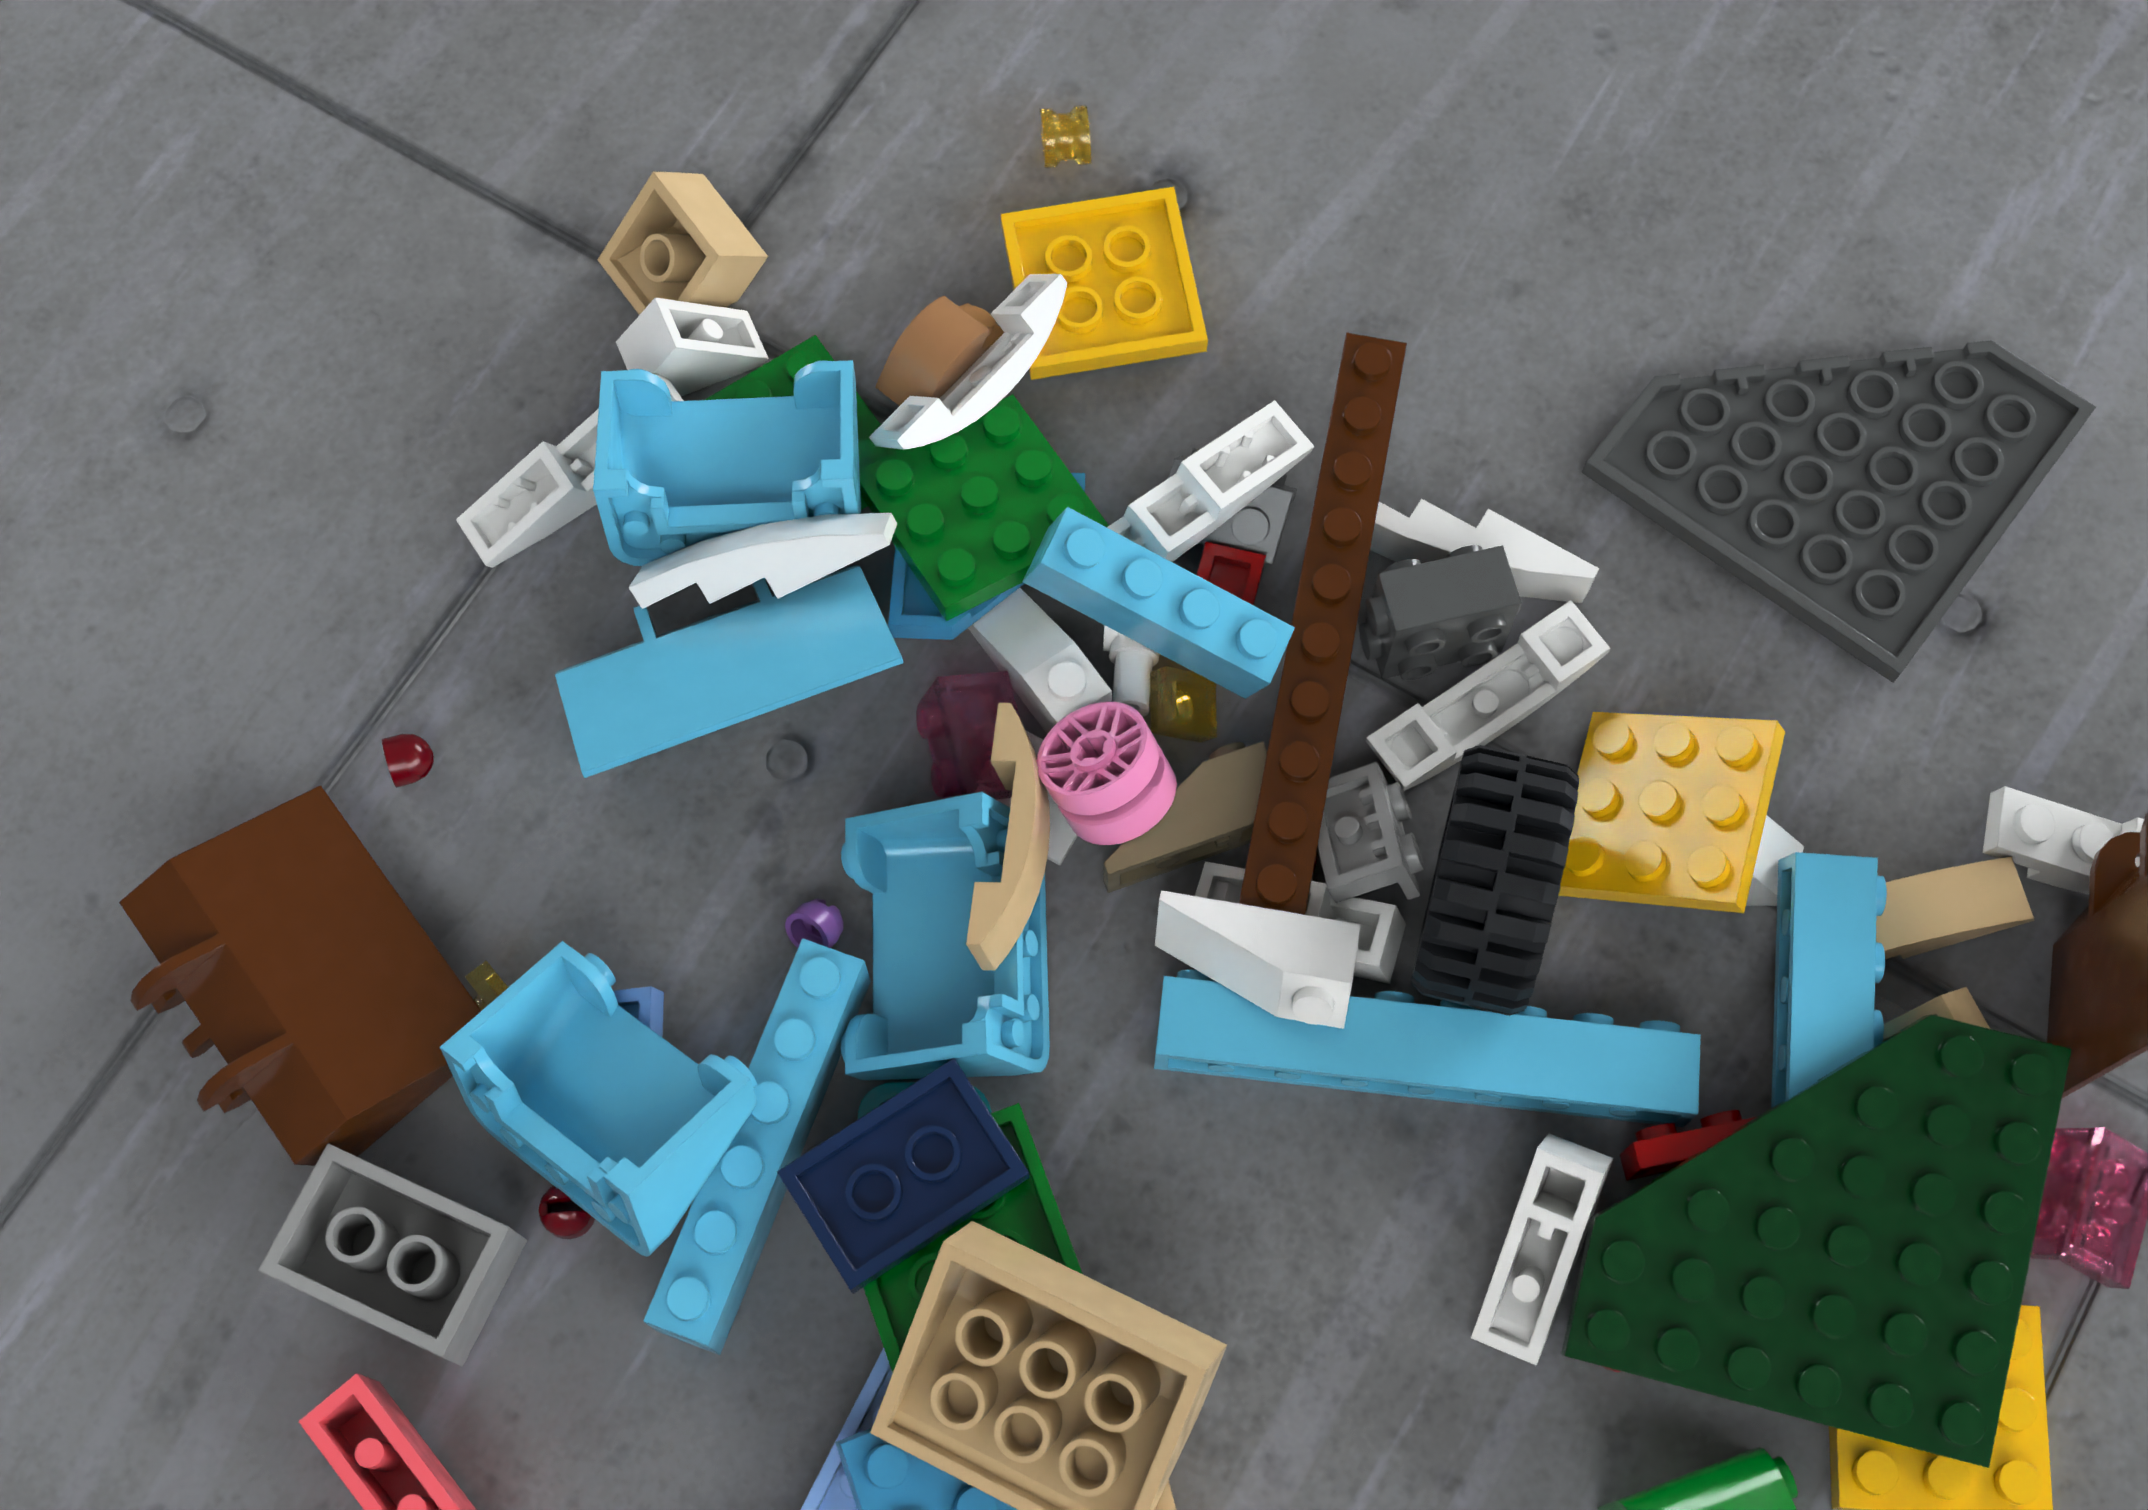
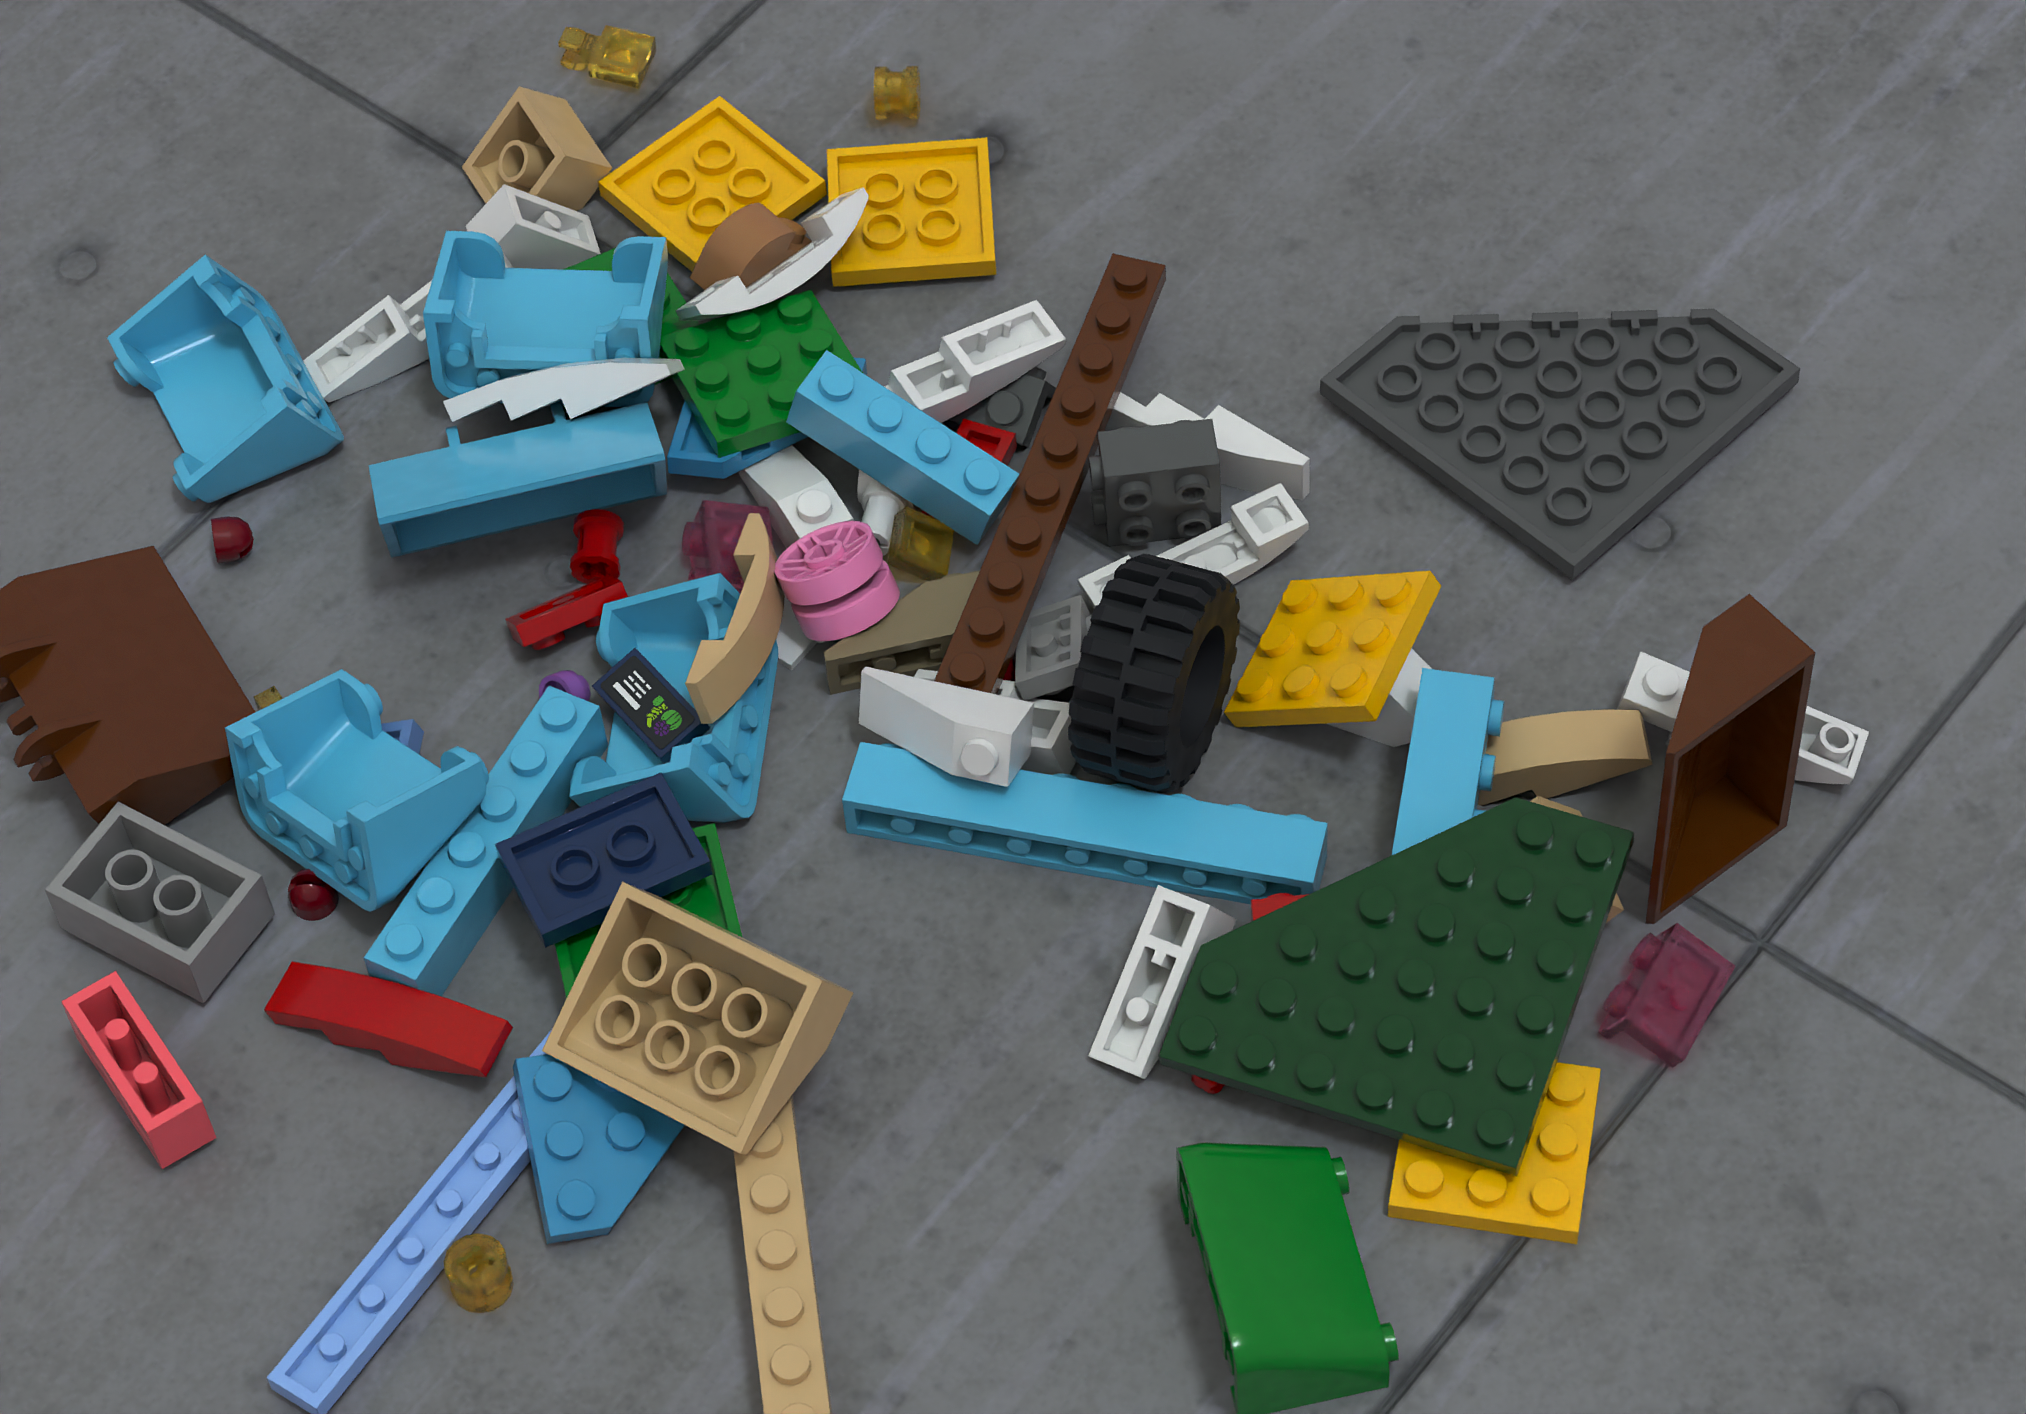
camera: 10 degrees right, 15 degrees down
(375, 562) = (224, 382): none -> medium azure windscreen
(681, 1379) = (386, 1016): none -> red slope
(747, 112) = (613, 57): none -> clear yellow plate
(802, 822) = (546, 622): none -> red plate
(822, 735) = (597, 545): none -> red bush
(876, 263) = (705, 174): none -> yellow plate
(914, 938) = (649, 705): none -> tile

